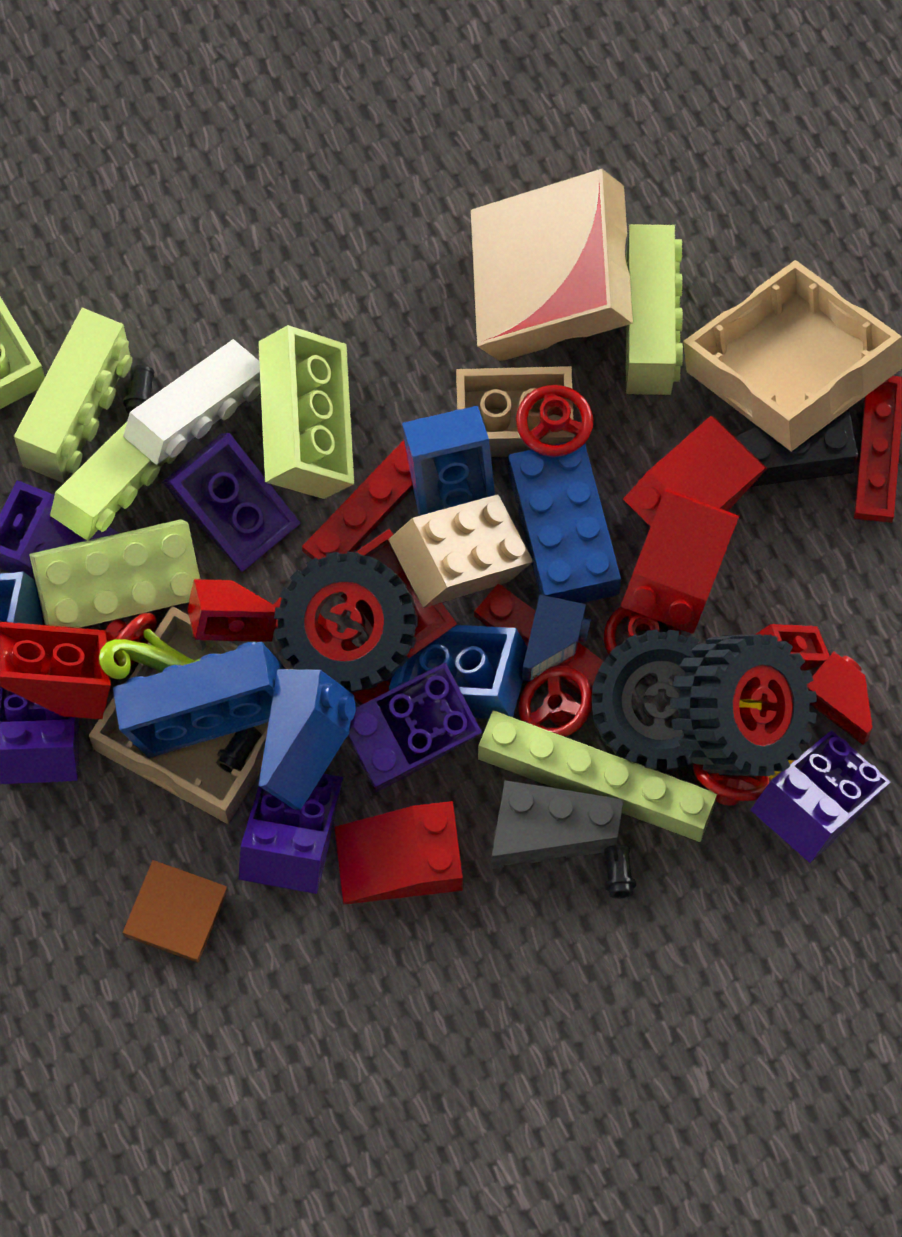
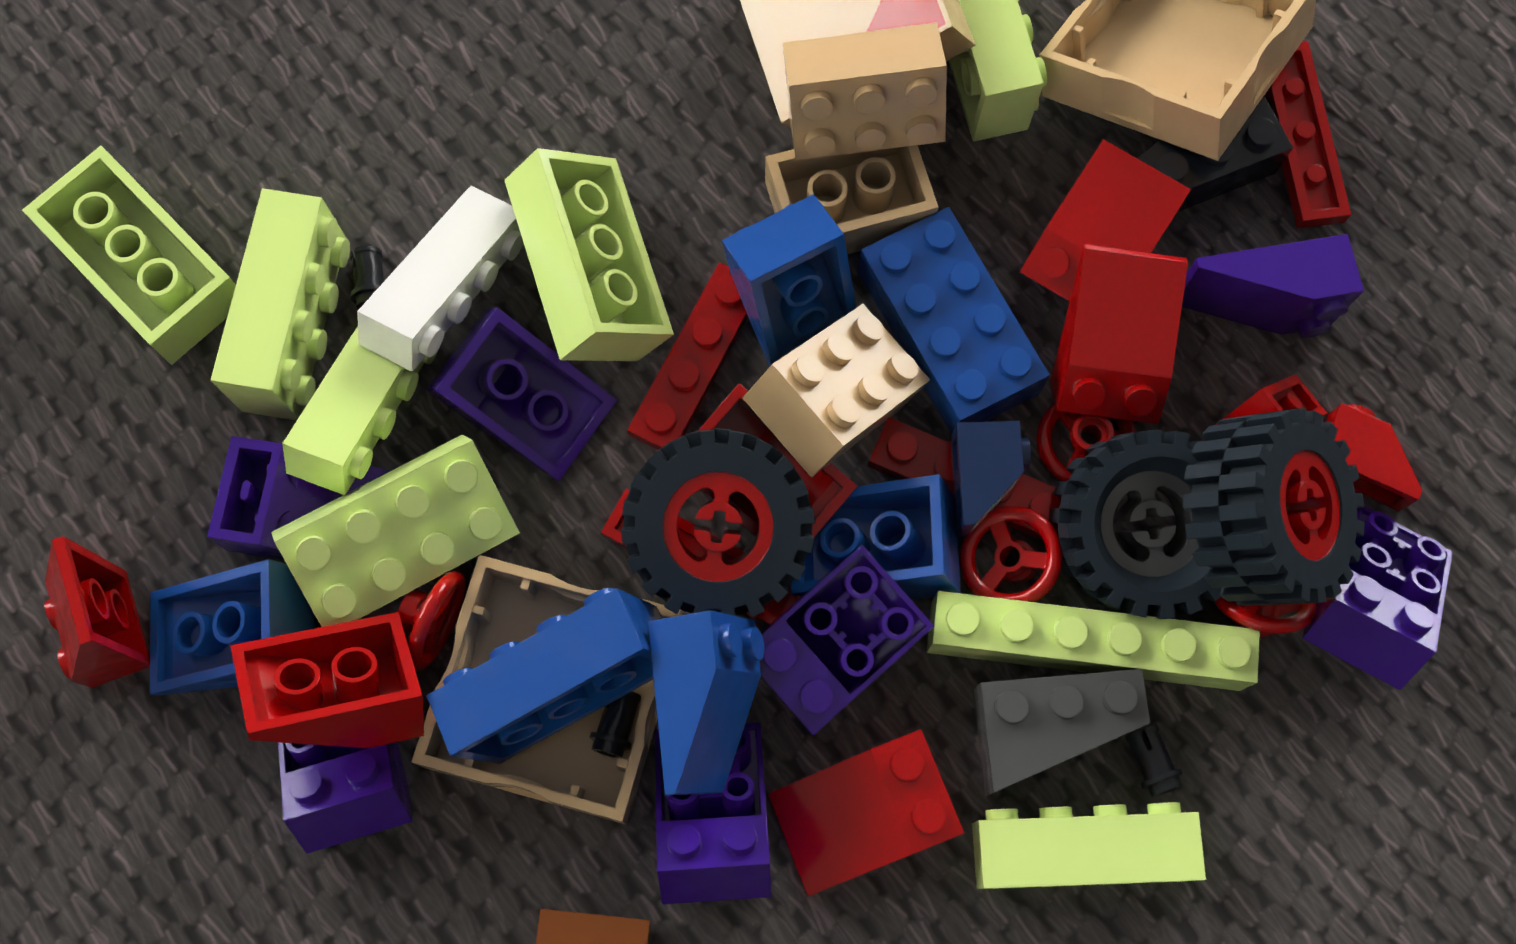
camera: 15 degrees left, 5 degrees up
(156, 656) = (479, 630): lime plant -> none
(229, 612) = (558, 547): red slope -> none
(537, 340) = (866, 91): none -> tan brick
(550, 917) = (1088, 848): none -> yellowish green brick
(554, 405) = (910, 166): red piece -> none
(813, 555) = (1278, 286): none -> dark purple slope

